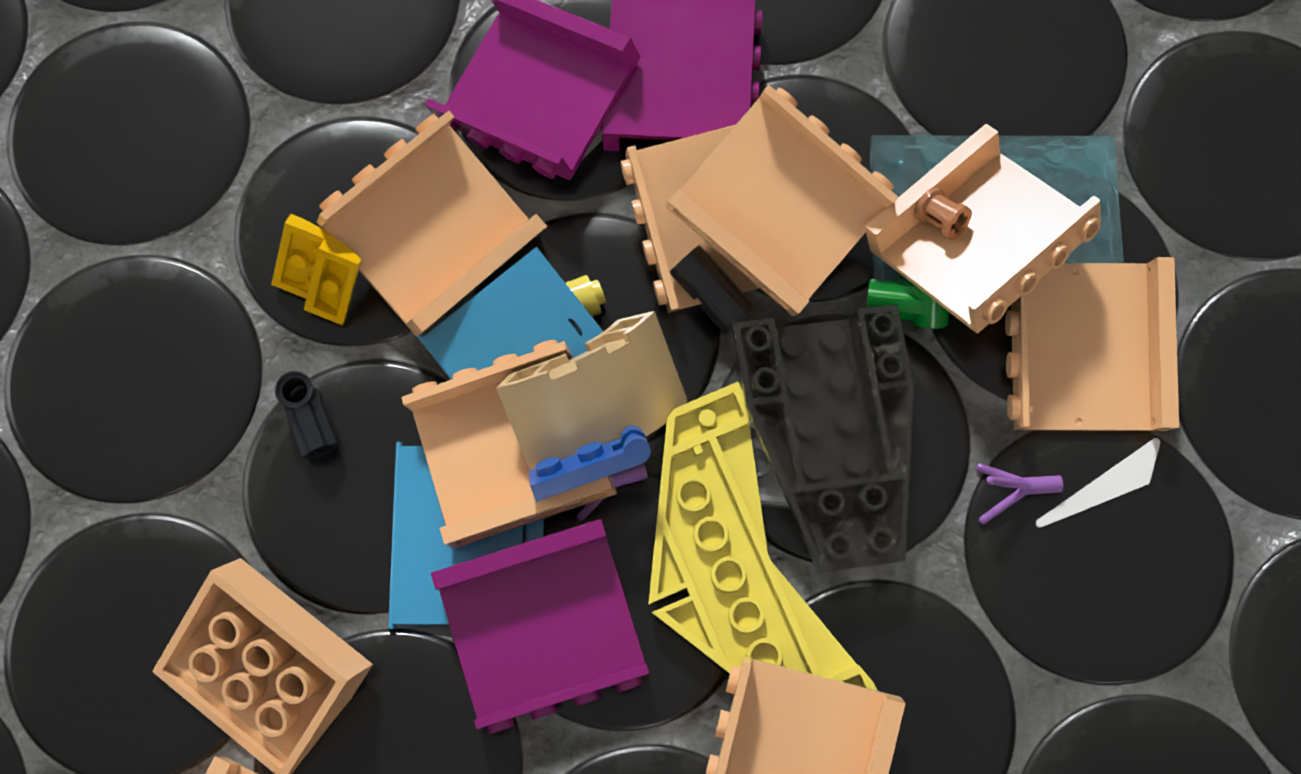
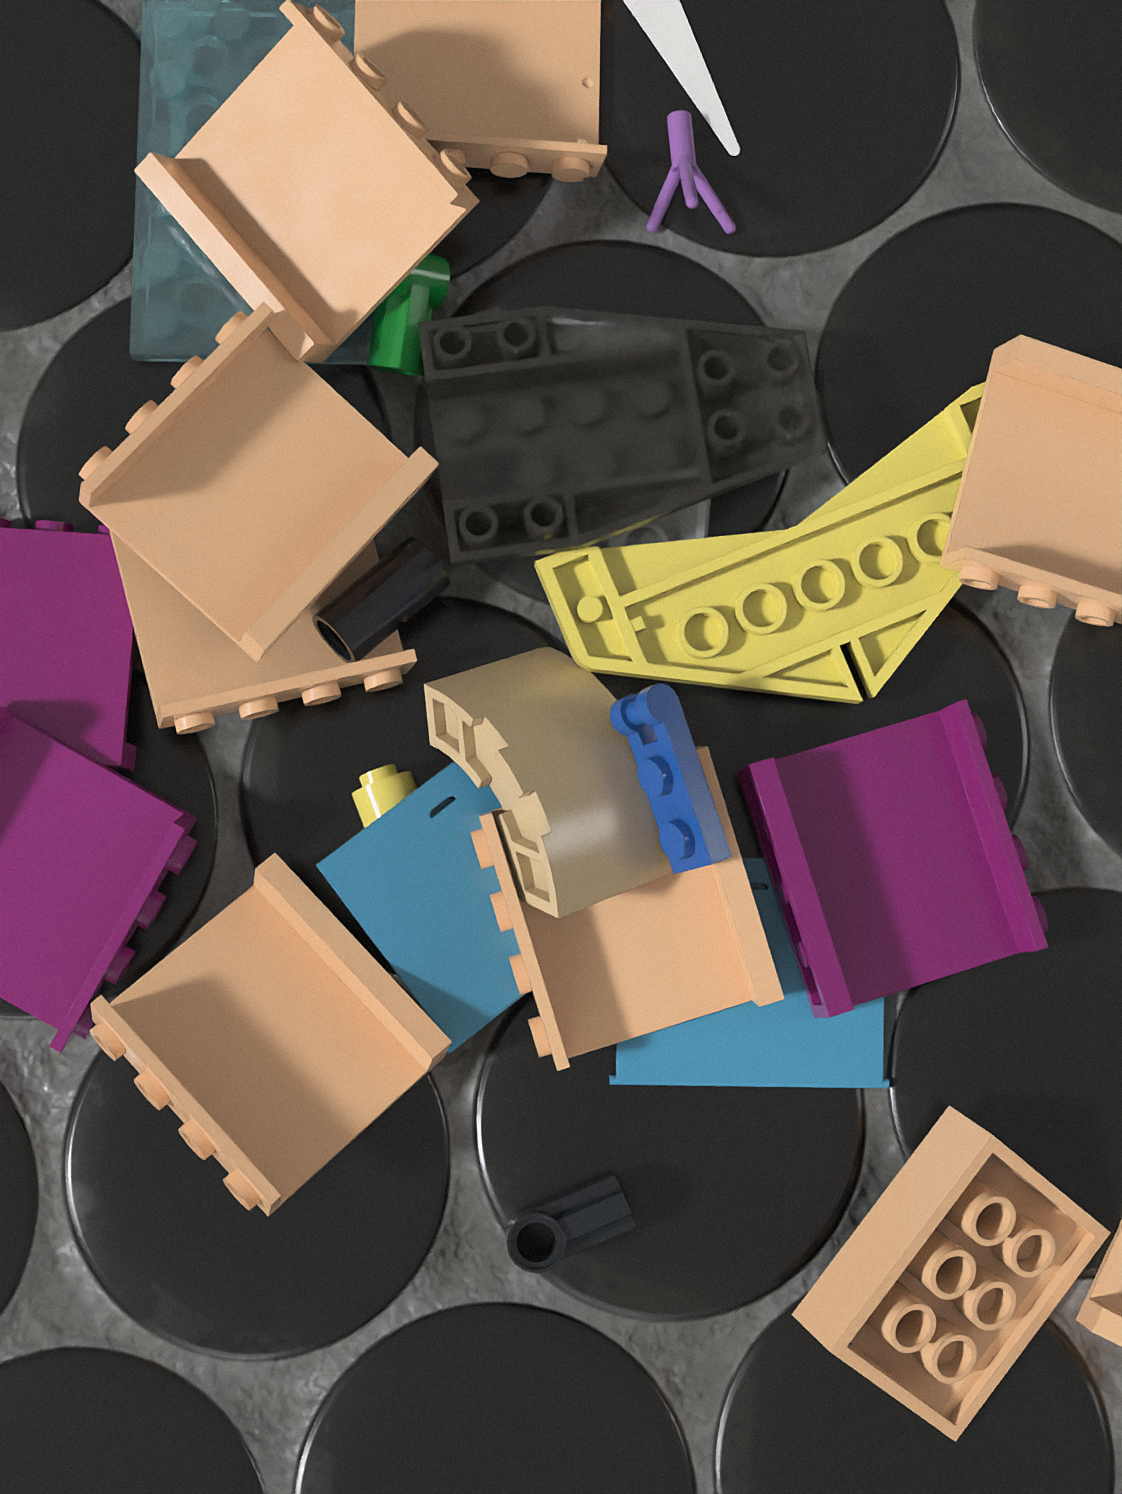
camera: 90 degrees left, 10 degrees up
(316, 268) = (335, 1214): yellow slope -> none
(943, 213) = (279, 243): nougat bush -> none

